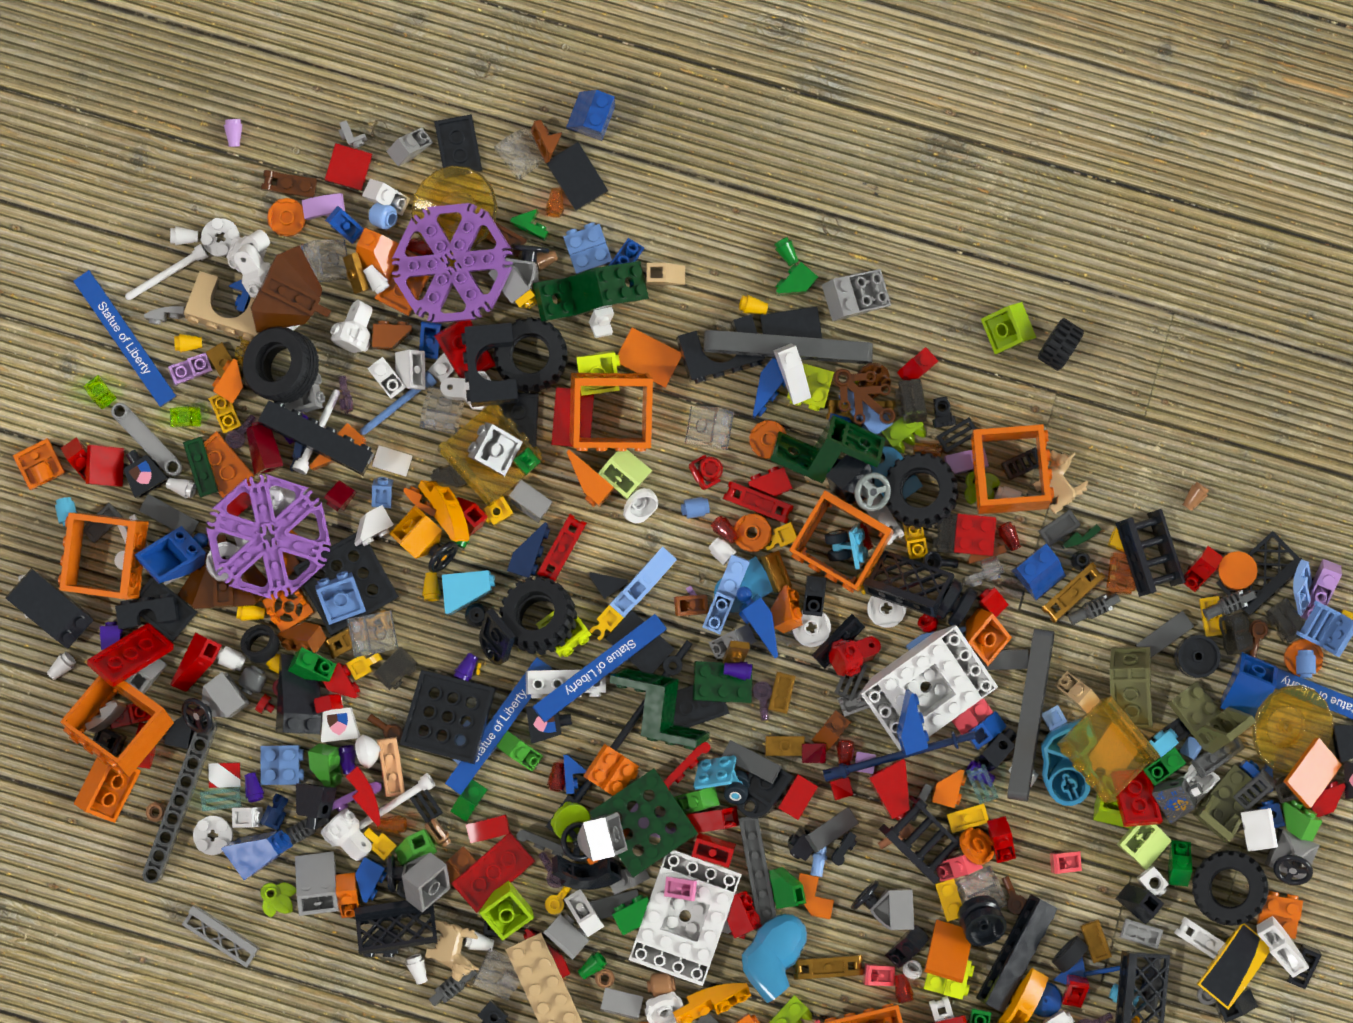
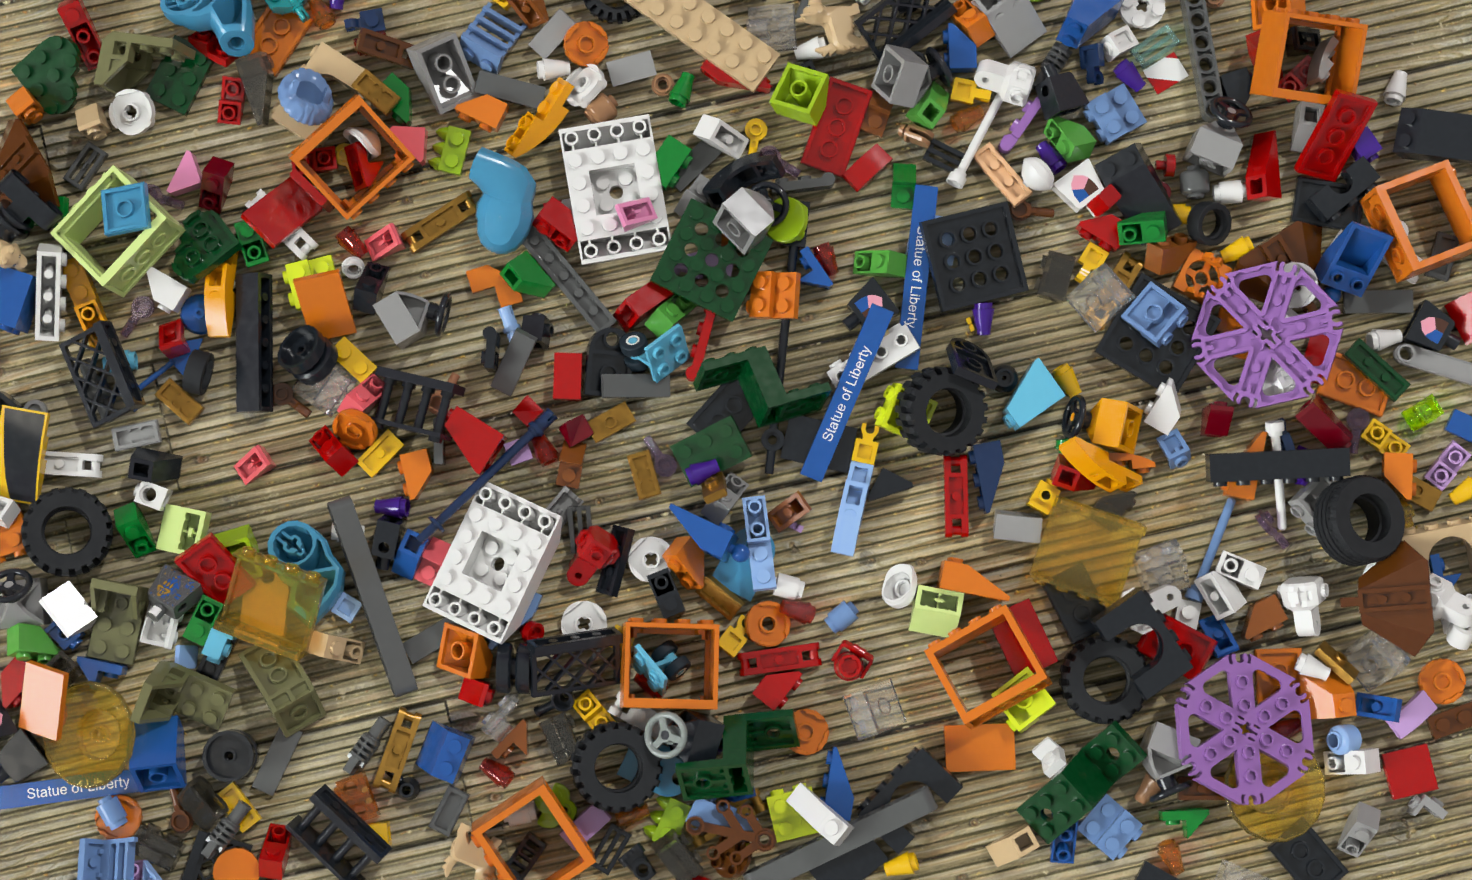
camera: 150 degrees right, 0 degrees up
(364, 795) = (1012, 129): red slope -> none
(392, 461) = (1182, 488): white sticker -> none
(494, 448) = (1086, 558): light grey plate -> none
(526, 461) = (1044, 564): green tile -> none
(527, 300) = (1142, 734): yellow plate -> none
(567, 935) = (726, 103): light grey slope -> none
(713, 850) = (624, 273): red brick -> none
(910, 728) = (489, 508): blue slope -> none
(975, 535) = (533, 752): red plate -> none
(977, 772) = (394, 504): clear light blue tile -> none
(1077, 539) = (424, 808): dark green slope -> none
(1209, 762) = (159, 649): dark grey tile -> none
(1264, 781) = (91, 663): dark grey slope -> none

